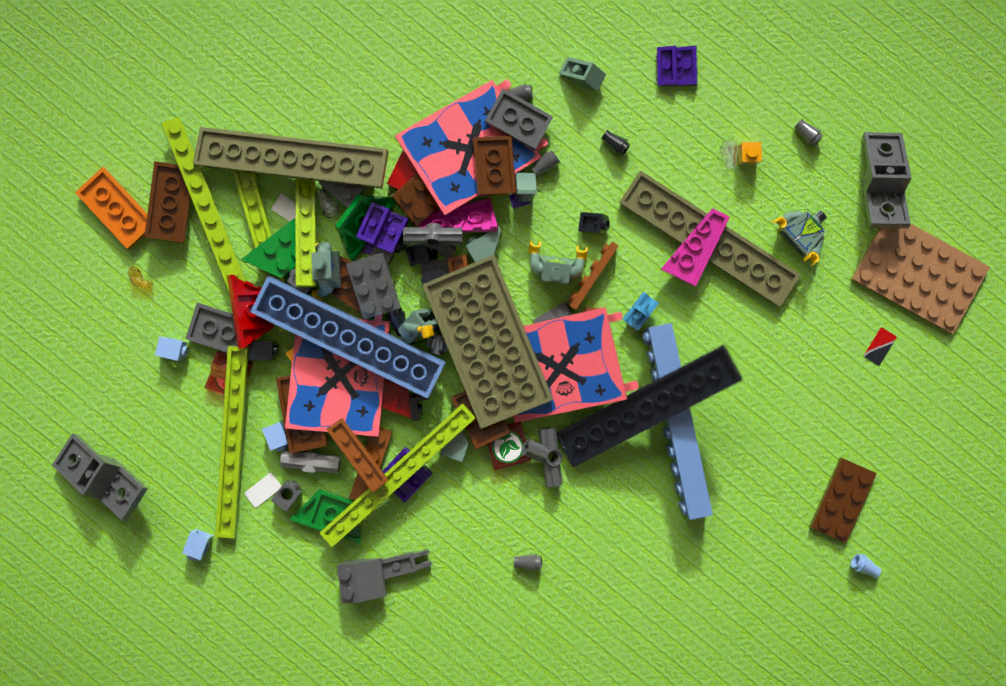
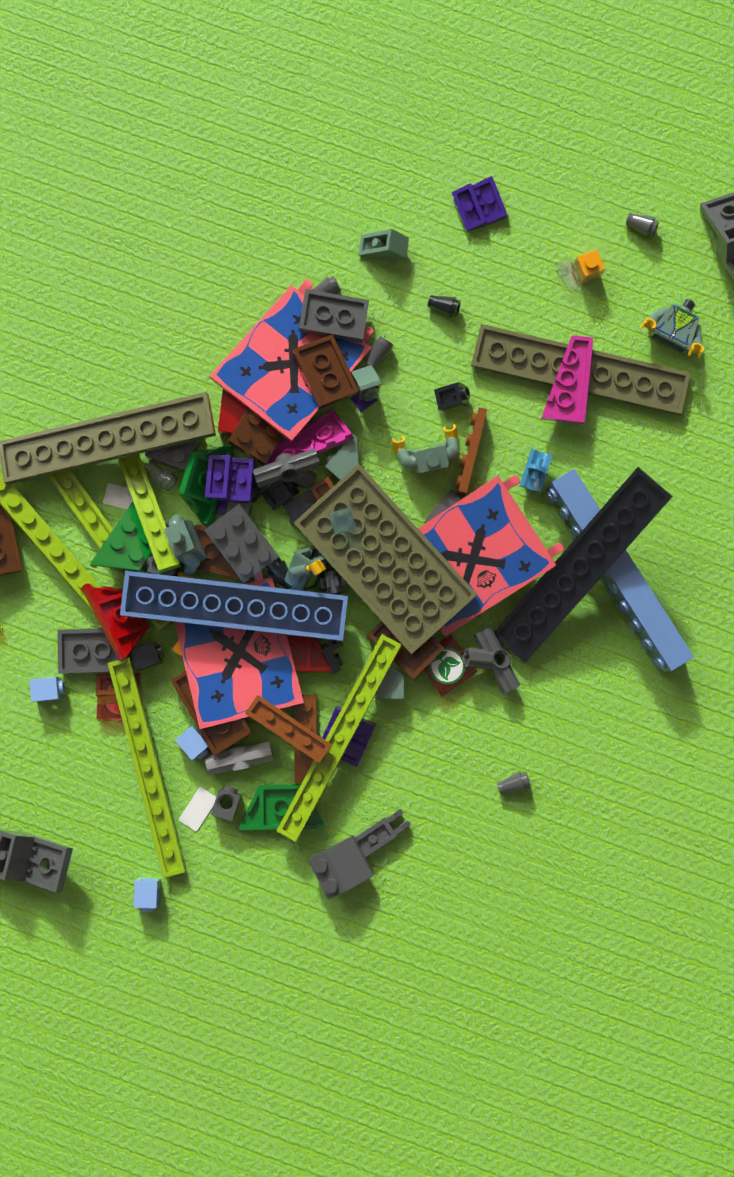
camera: 20 degrees left, 5 degrees down
(463, 298) = (342, 521): none -> clear light blue tile

